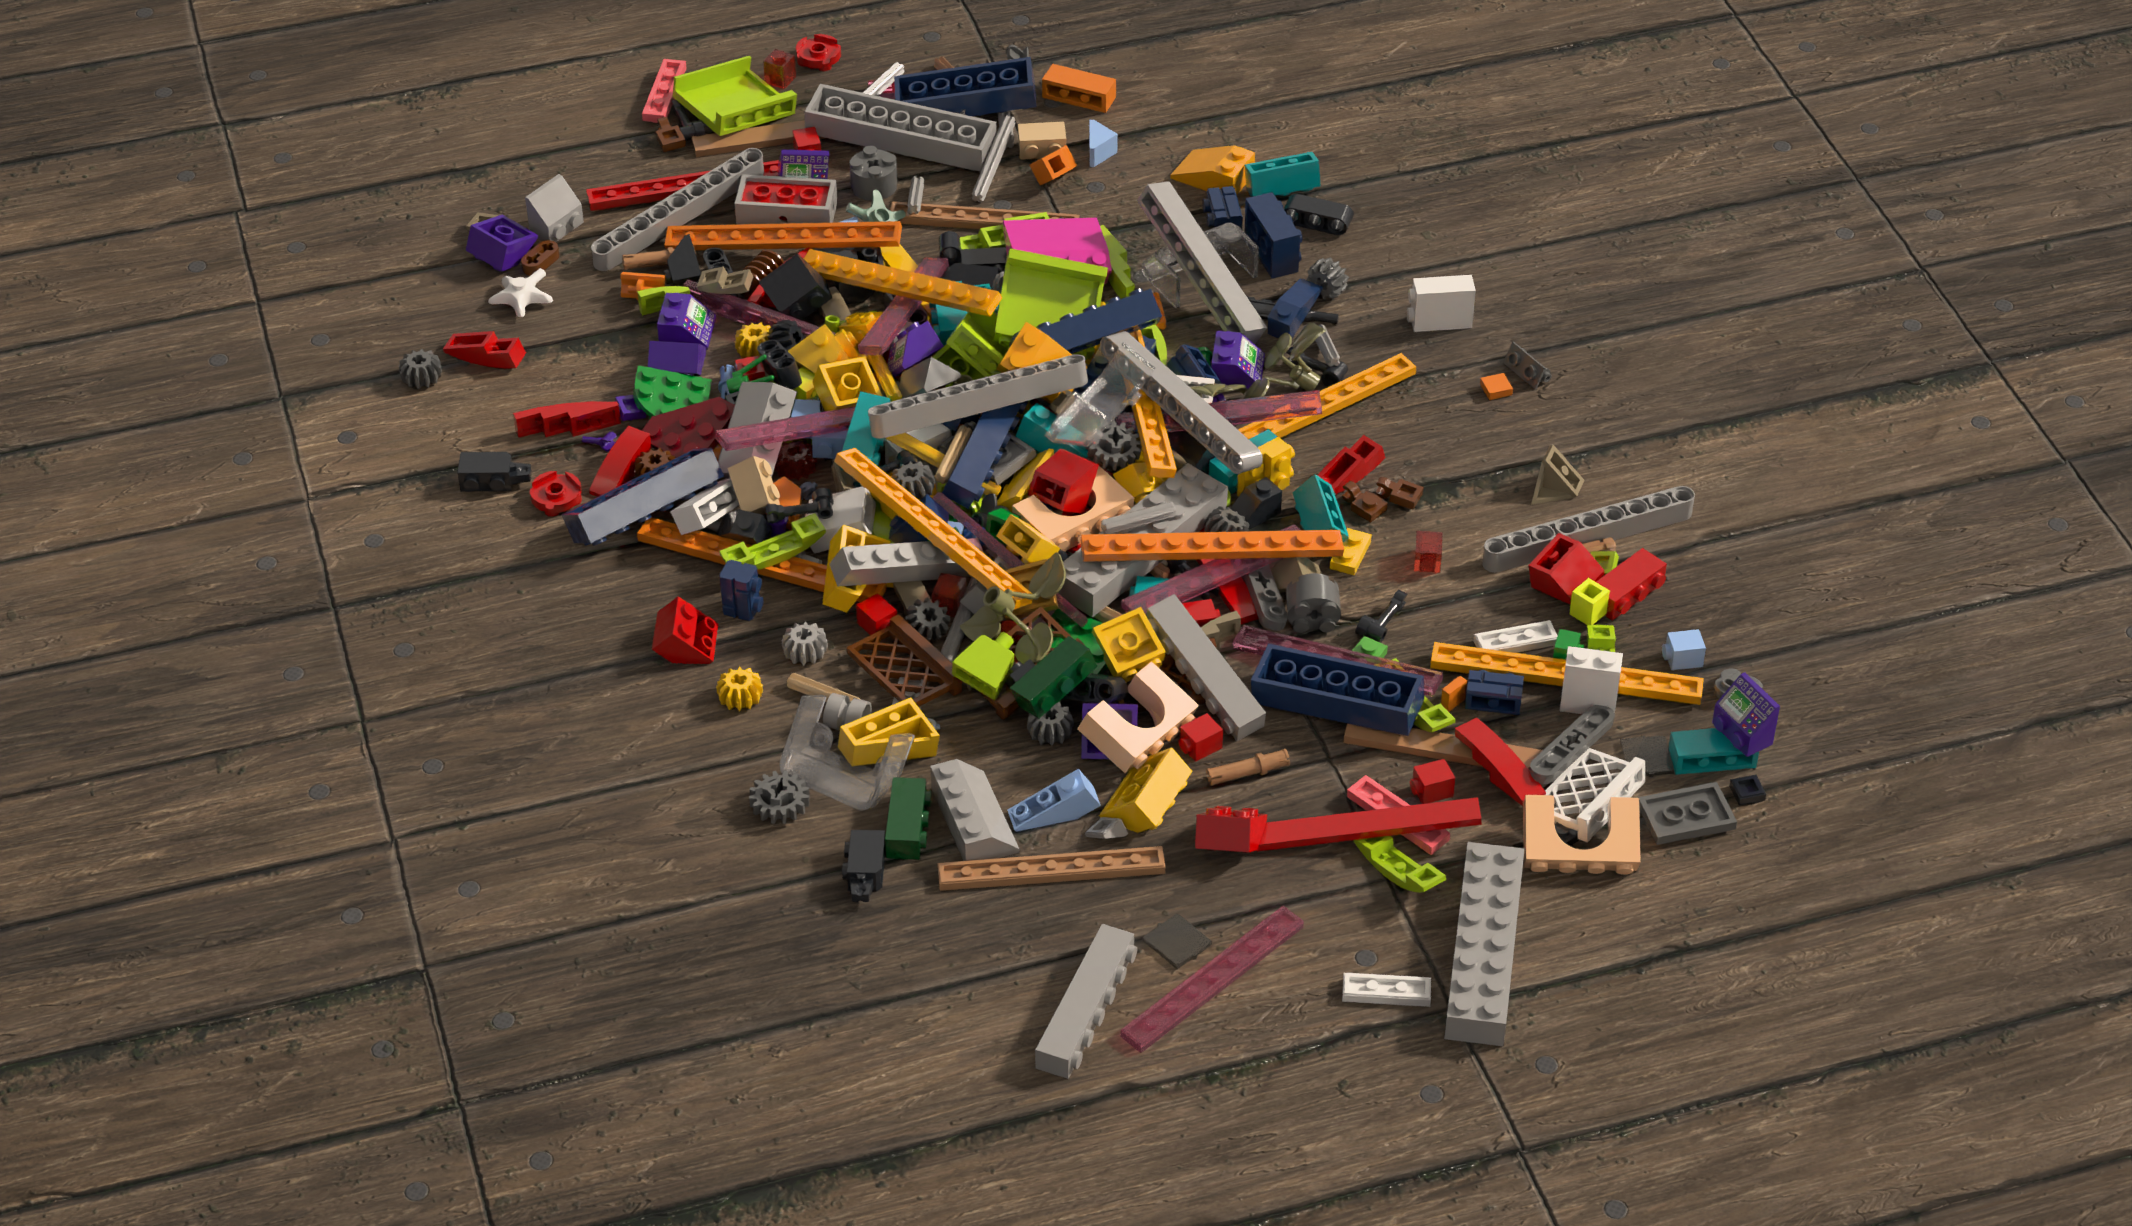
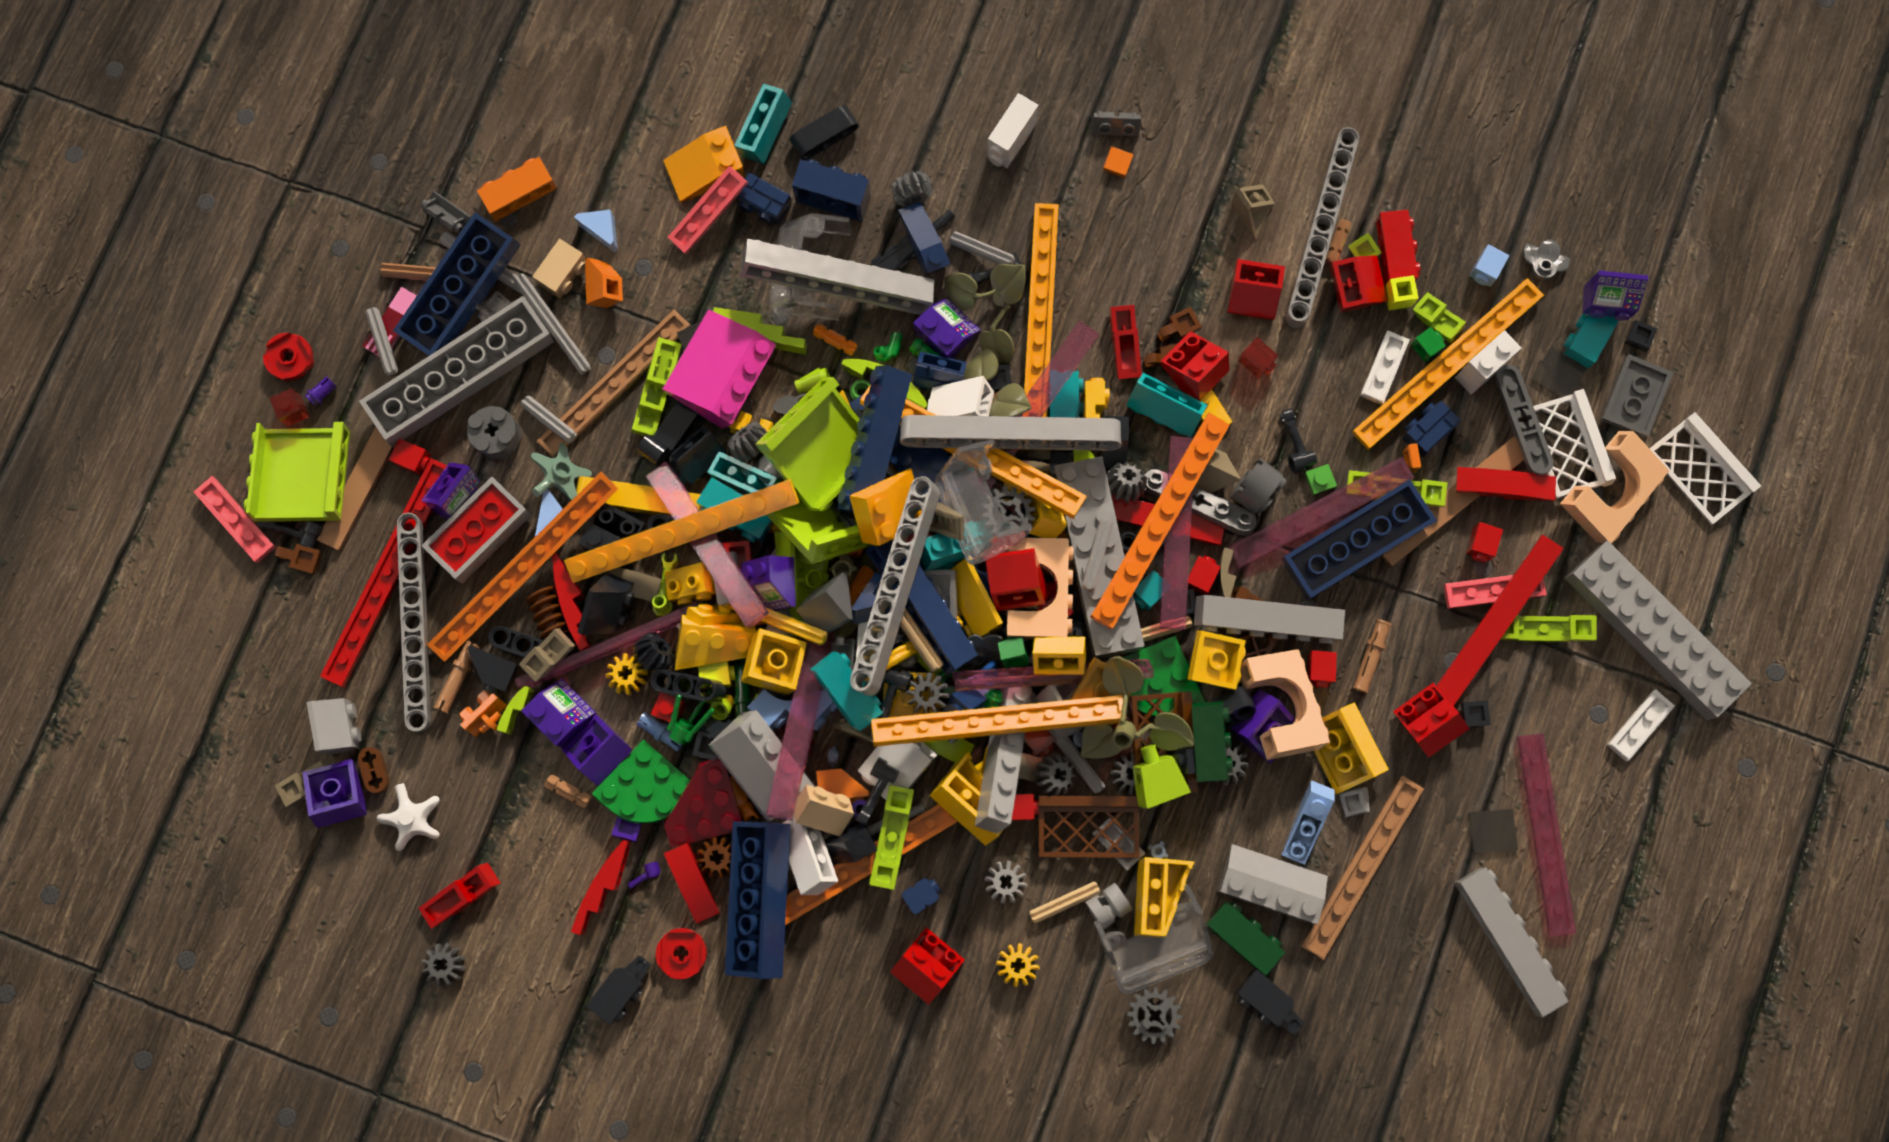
camera: 50 degrees left, 35 degrees up
(627, 363) = (568, 791): none -> medium nougat axle
(808, 79) = (320, 391): none -> dark purple pin
(1175, 342) = (891, 350): none -> green arm
(1183, 181) = (708, 210): none -> coral plate
(1270, 863) = (1476, 713): none -> black plate
(1375, 513) = (1196, 365): none -> red slope
(1485, 513) = (1255, 289): none -> red slope
(1698, 903) = (1719, 454): none -> white fence

